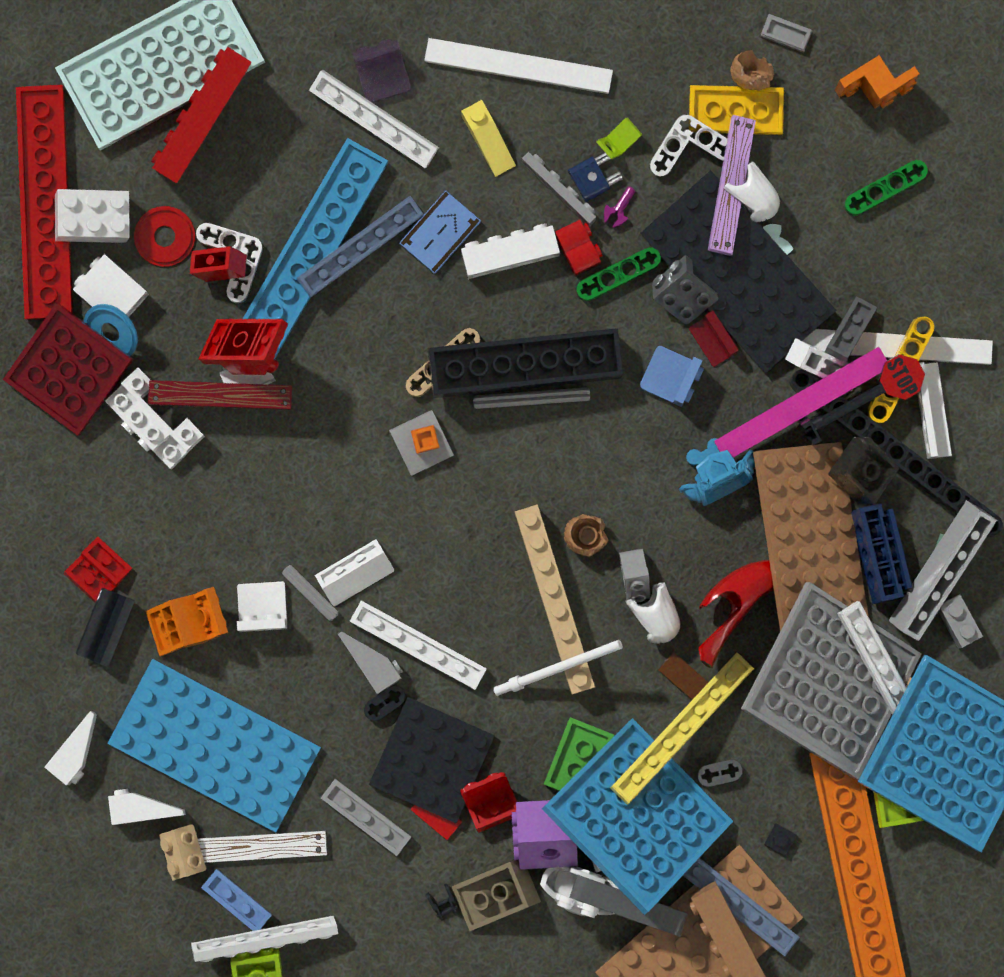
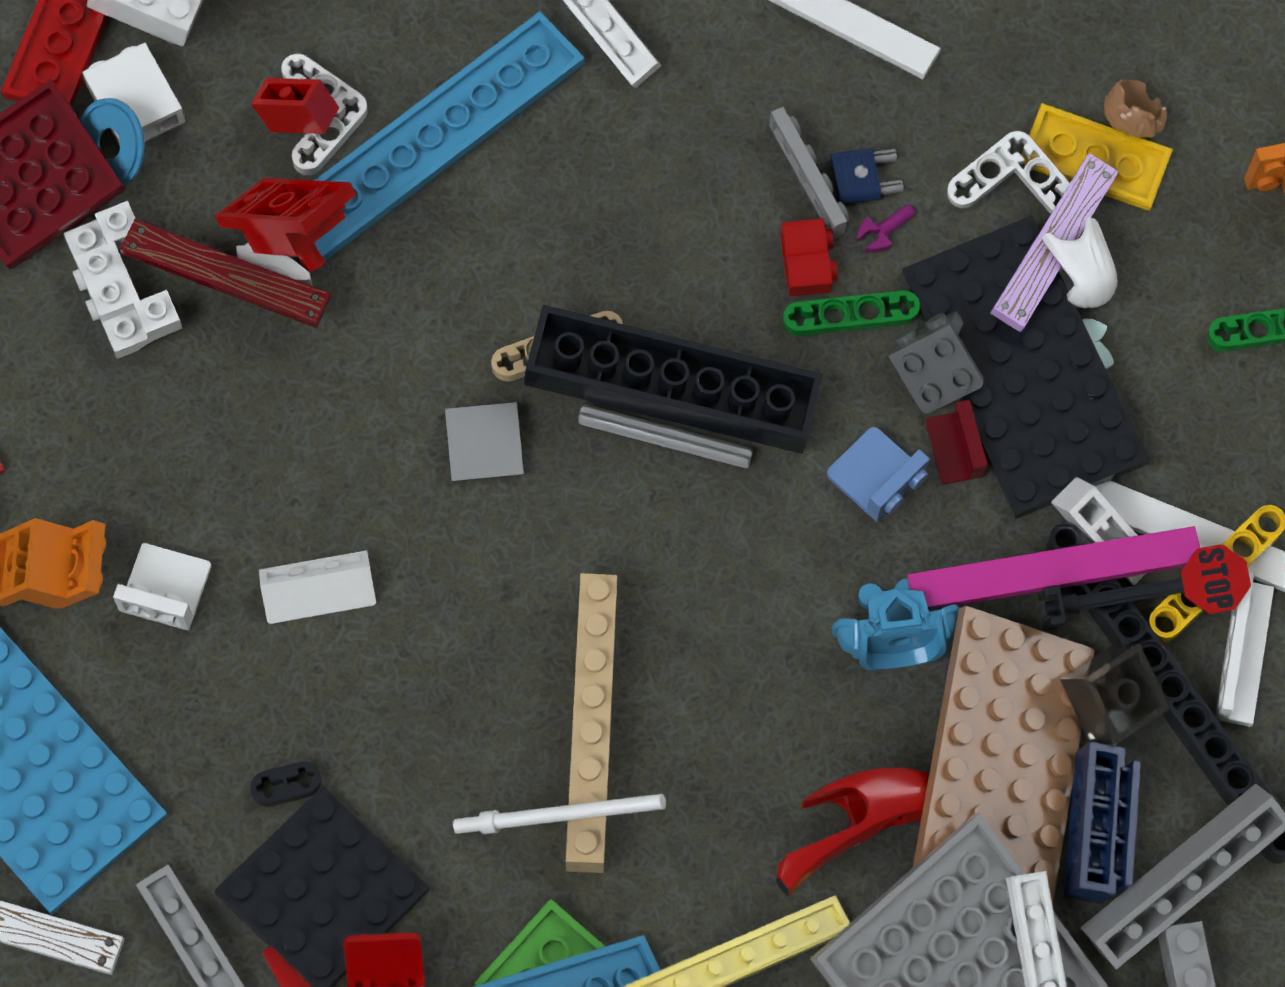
camera: 15 degrees right, 15 degrees down
(170, 254) = (232, 30): red piece -> none
(310, 592) = (242, 592): light grey axle -> none
(360, 246) = (500, 153): sand blue tile -> none
(375, 666) = (292, 721): light grey slope -> none
(418, 645) = (368, 718): white plate -> none
(425, 439) = (490, 434): orange tile -> none
(440, 232) = (620, 176): medium blue tile -> none
(487, 137) = (734, 74): light yellow slope -> none
(511, 251) = (708, 230): white brick -> none
(585, 535) = (672, 646): medium nougat hair -> none
(620, 139) = (919, 137): lime bracket -> none
(635, 575) = (722, 730): light grey pin -> none
(657, 615) = (735, 796): white hair -> none
(683, 675) = (740, 899): reddish brown tile -> none
(786, 33) = (1200, 82): light grey tile -> none
(850, 329) = (1161, 494): dark grey plate -> none

